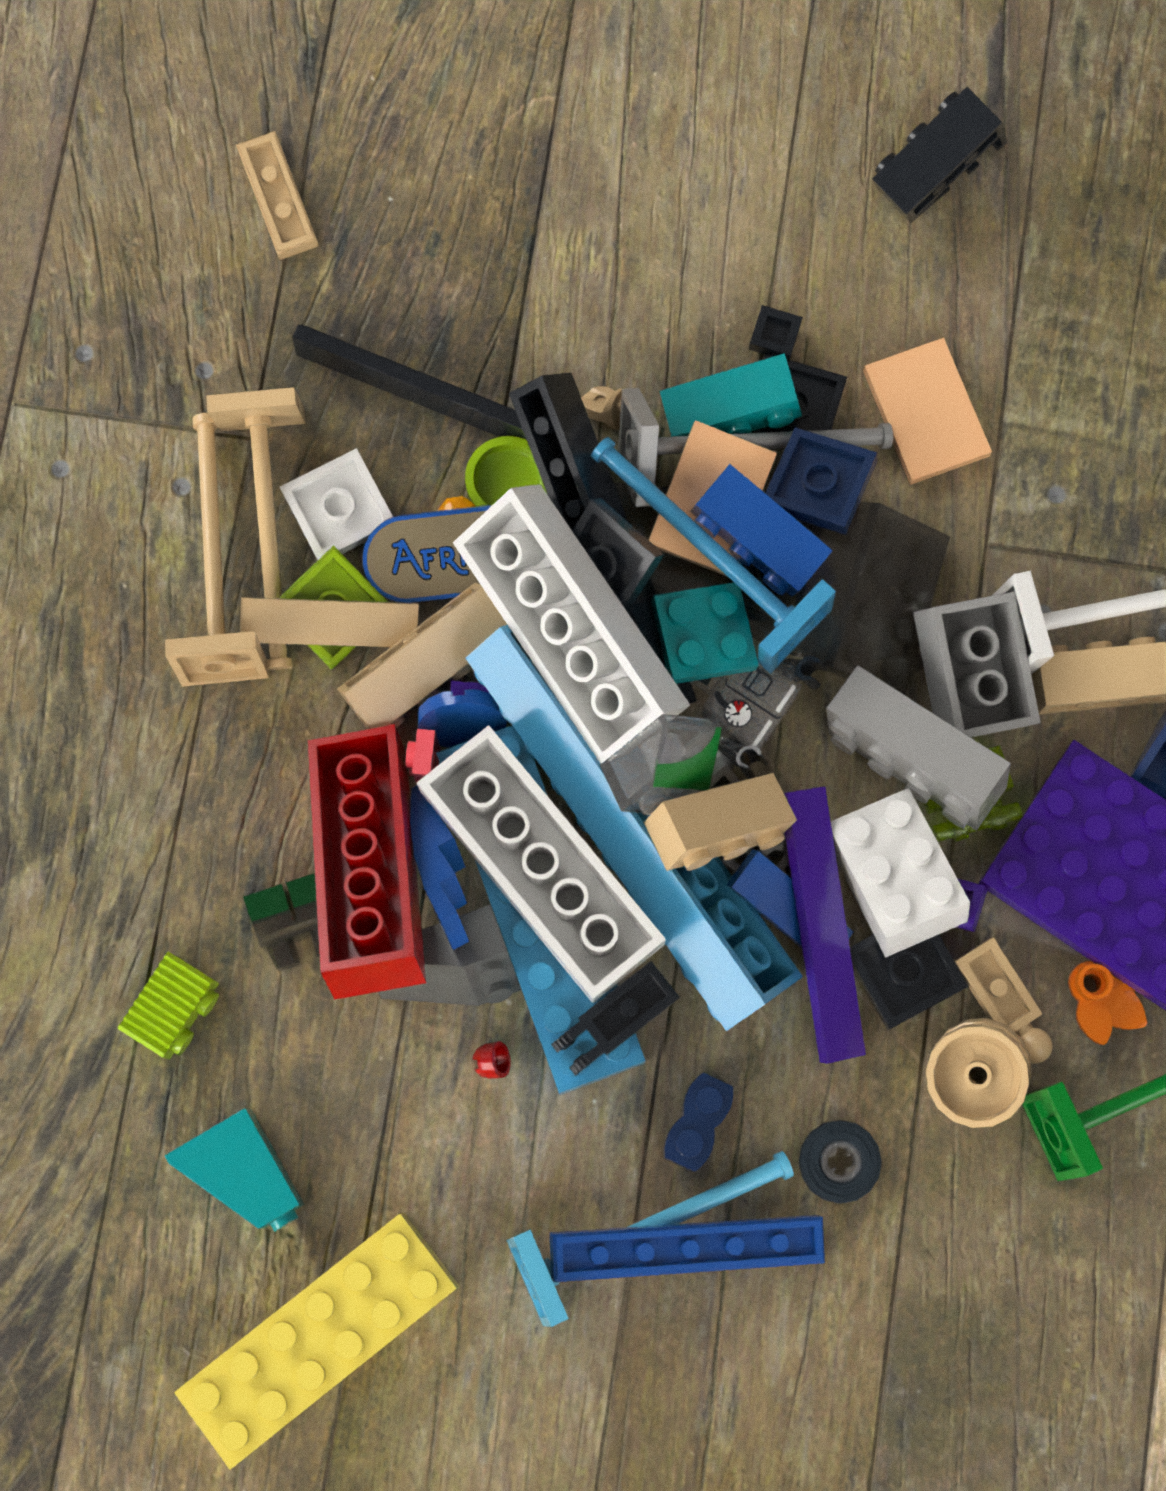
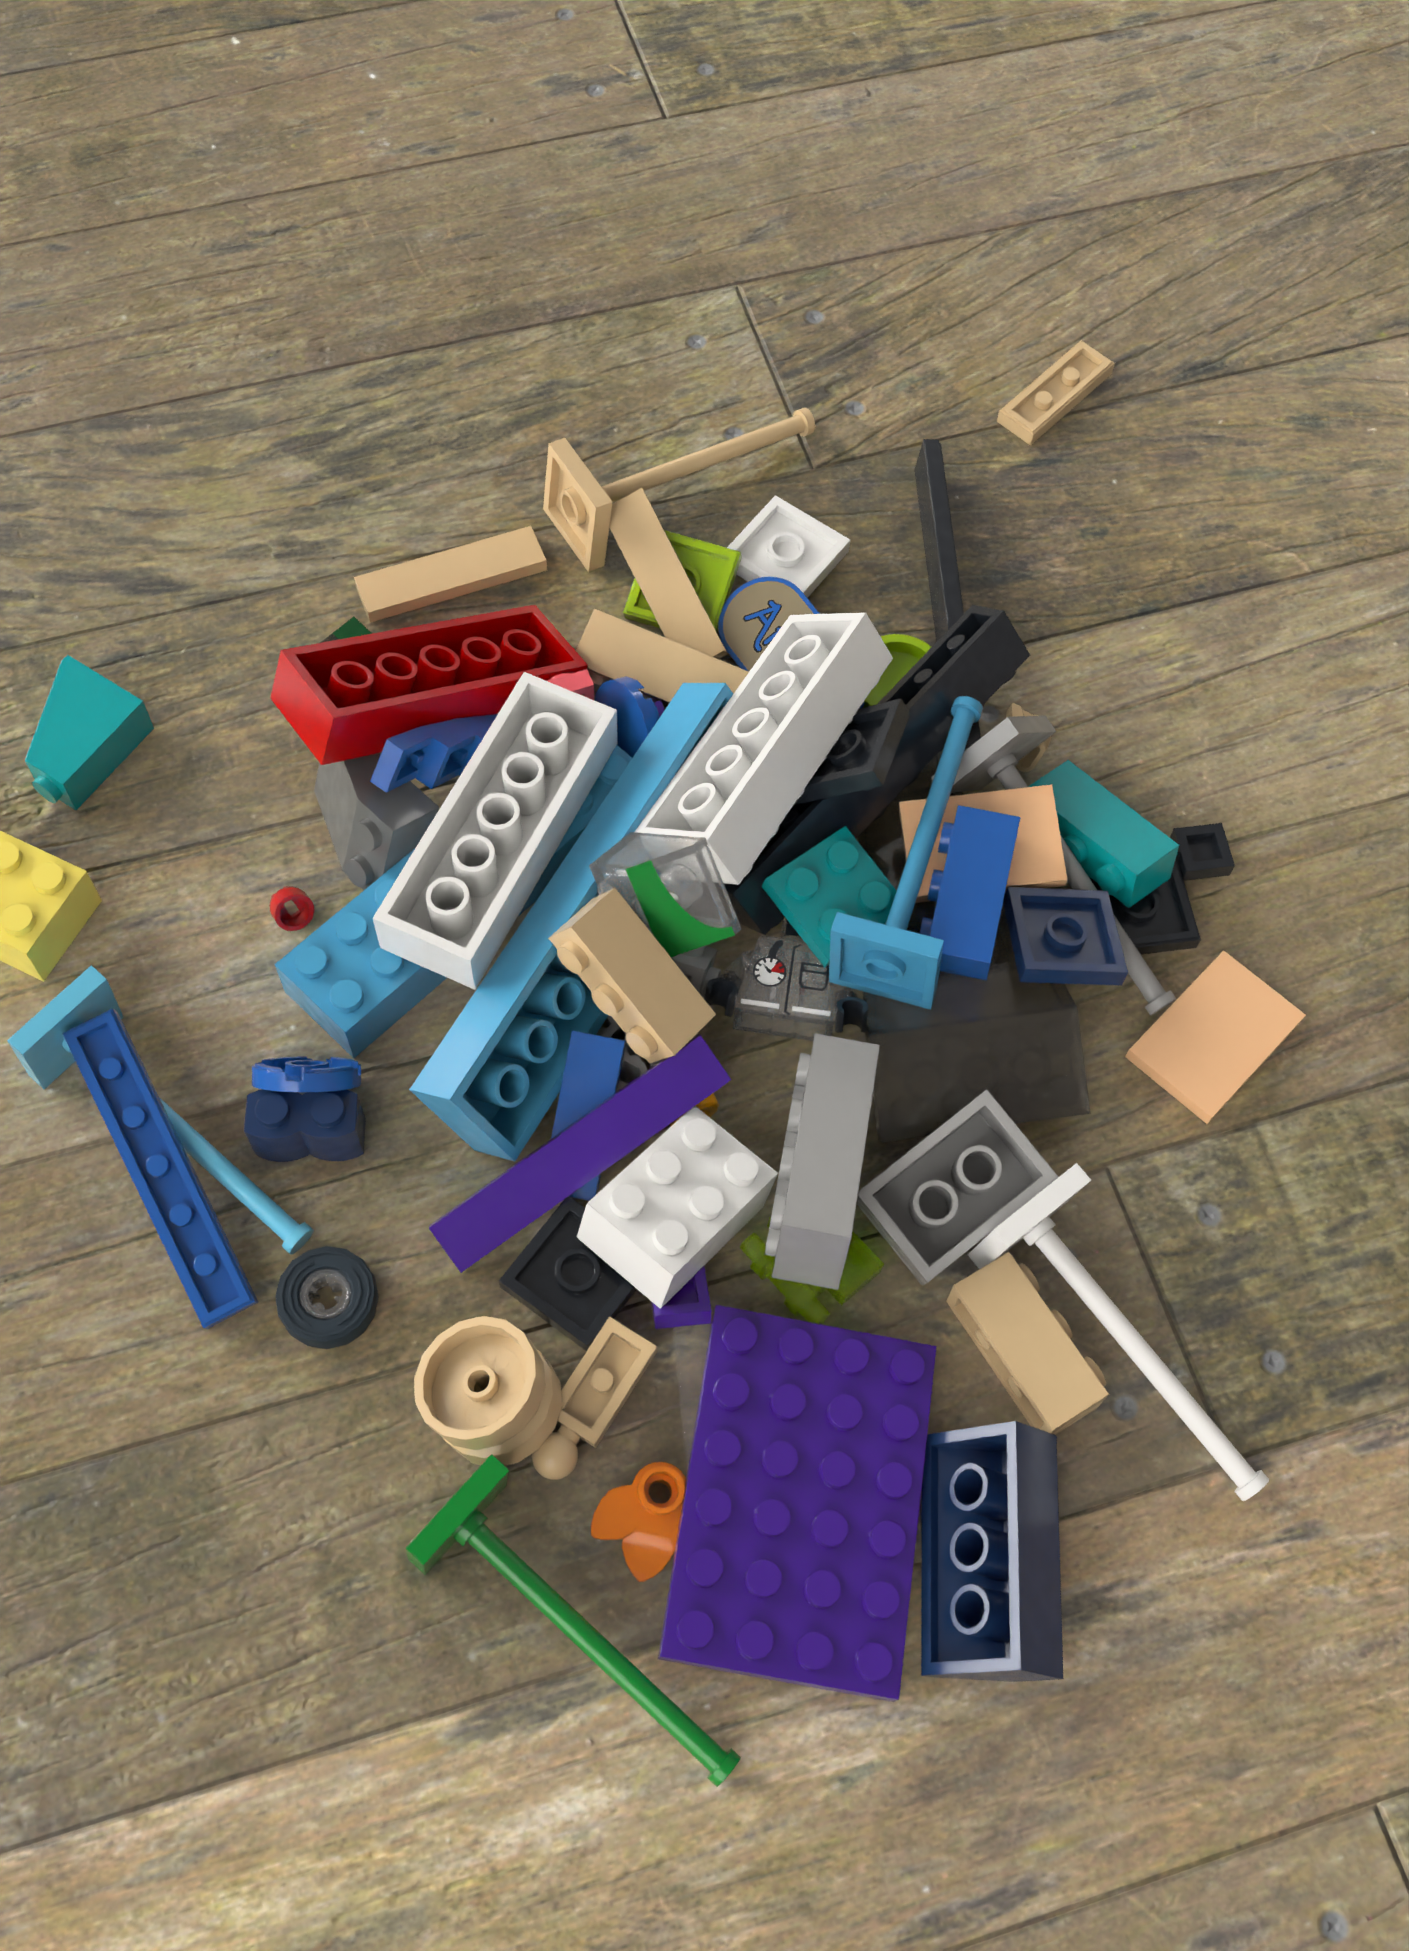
camera: 60 degrees right, 15 degrees down
(170, 1007) = (222, 611): lime brick -> none
(217, 795) = (450, 573): none -> tan tile
(258, 412) = (829, 438): tan tile -> none
(620, 1015) = (376, 974): black hinge -> none
(664, 1105) = (306, 1075): none -> blue tile

